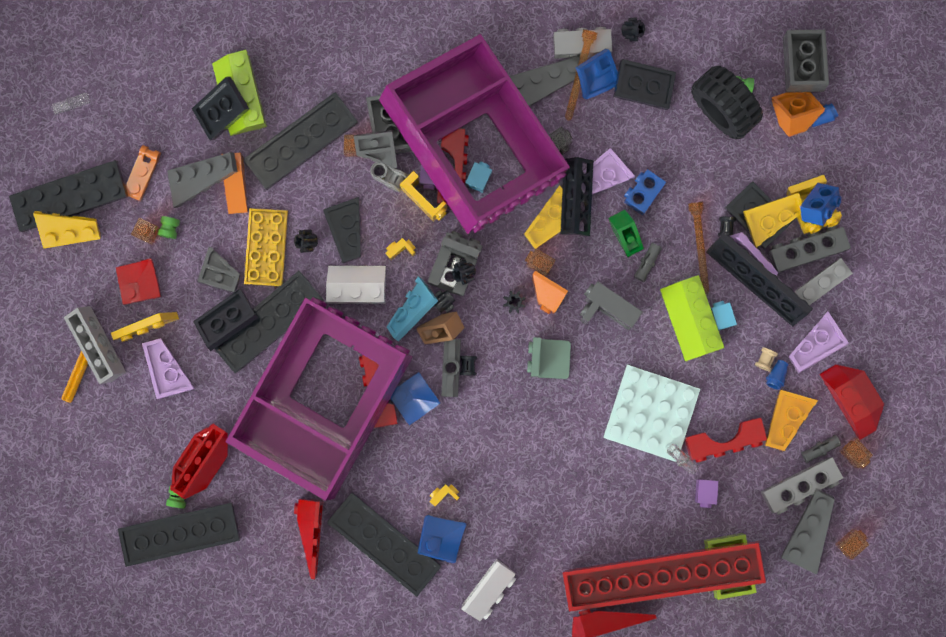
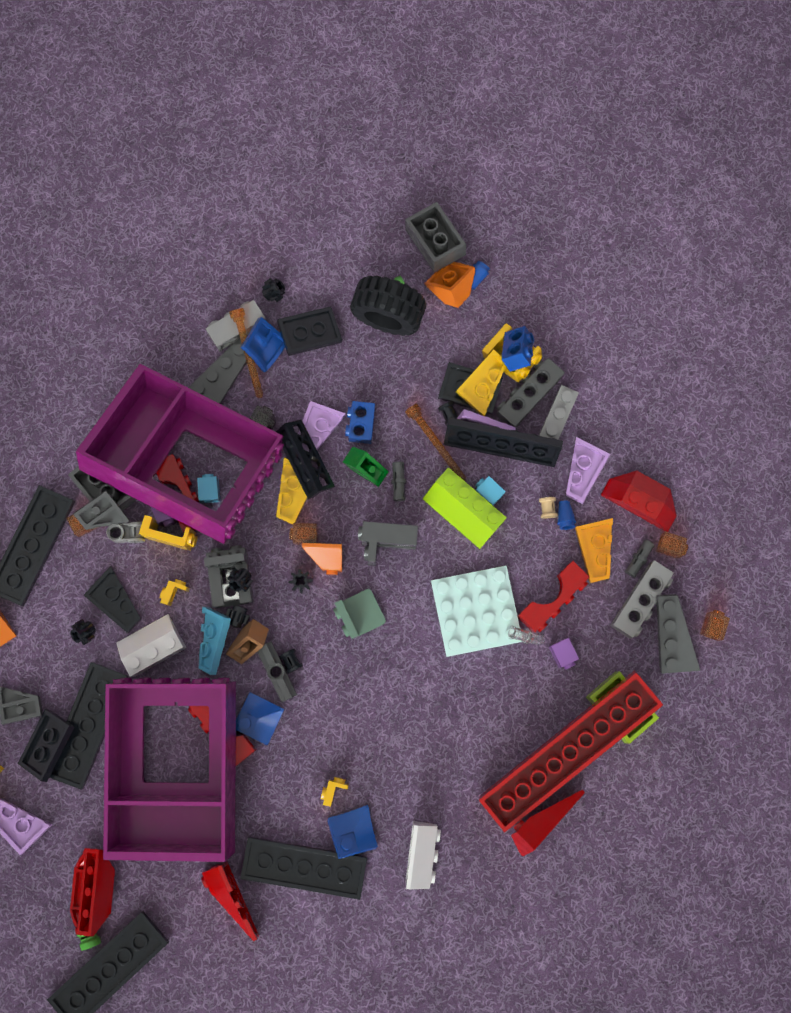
camera: 35 degrees left, 5 degrees down
(266, 247) = (50, 658): yellow tile -> none

